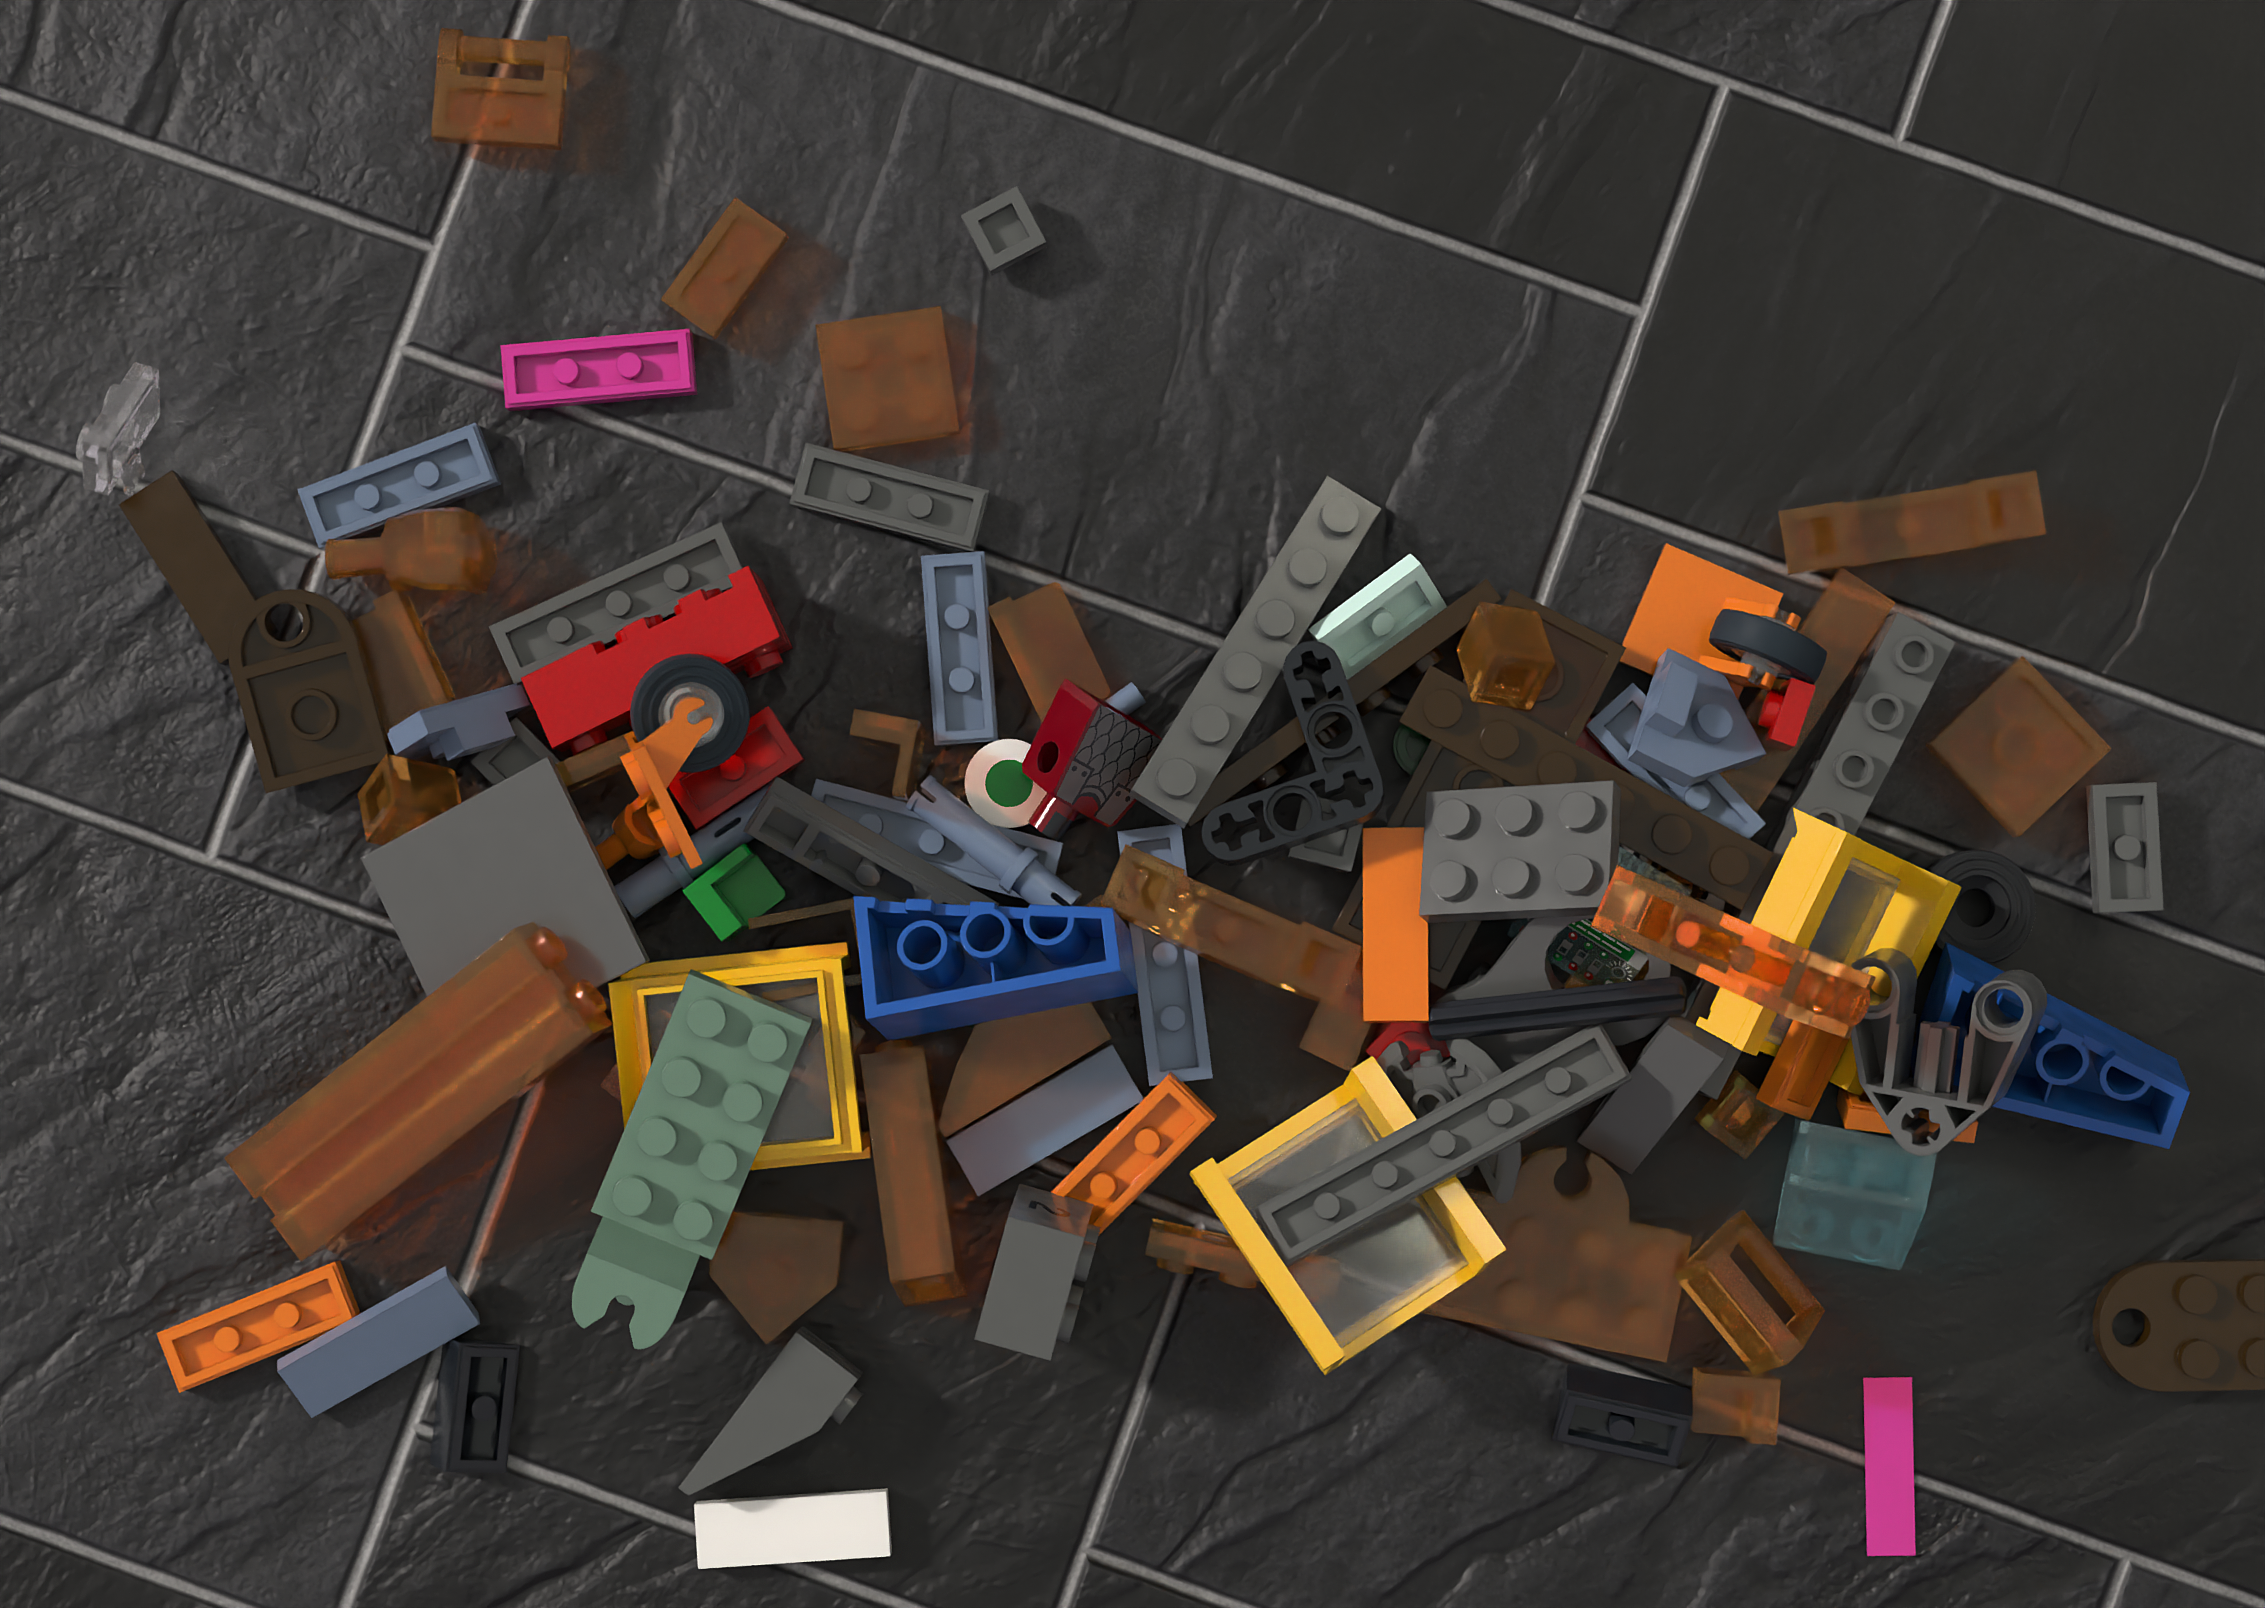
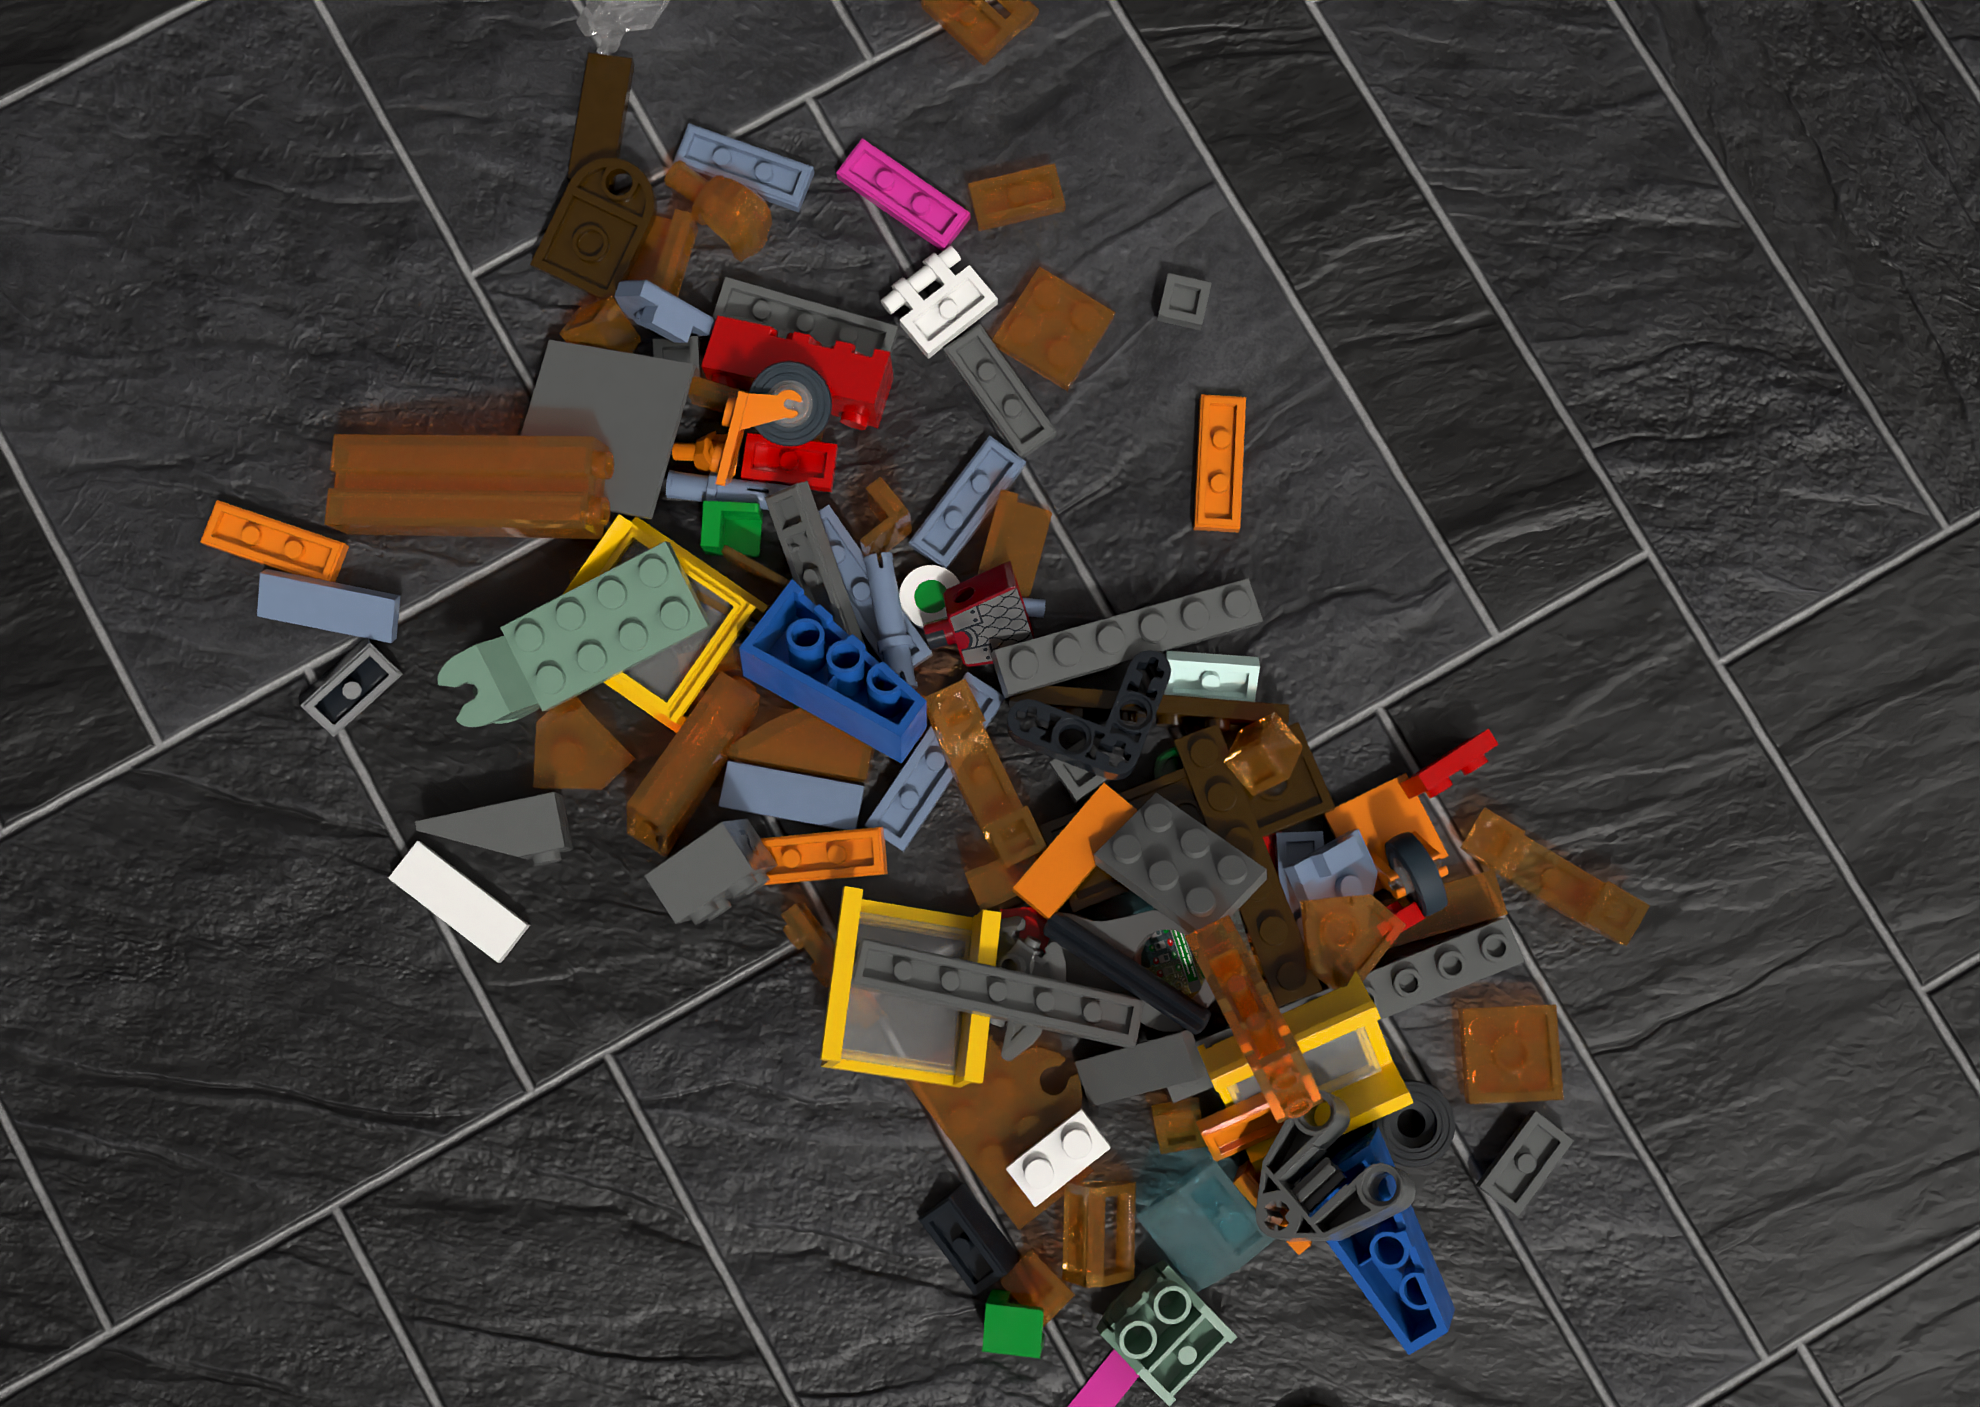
camera: 30 degrees right, 5 degrees down
(758, 458) = (948, 310): none -> white plate
(1190, 375) = (1219, 463): none -> orange tile
(1645, 1255) = (1058, 1157): none -> white plate
(1714, 474) = (1464, 757): none -> red plate
(1744, 1467) = (1012, 1327): none -> green panel
(1752, 777) = (1346, 936): none -> clear orange plate
(1916, 1335) = (1173, 1337): none -> sand green slope

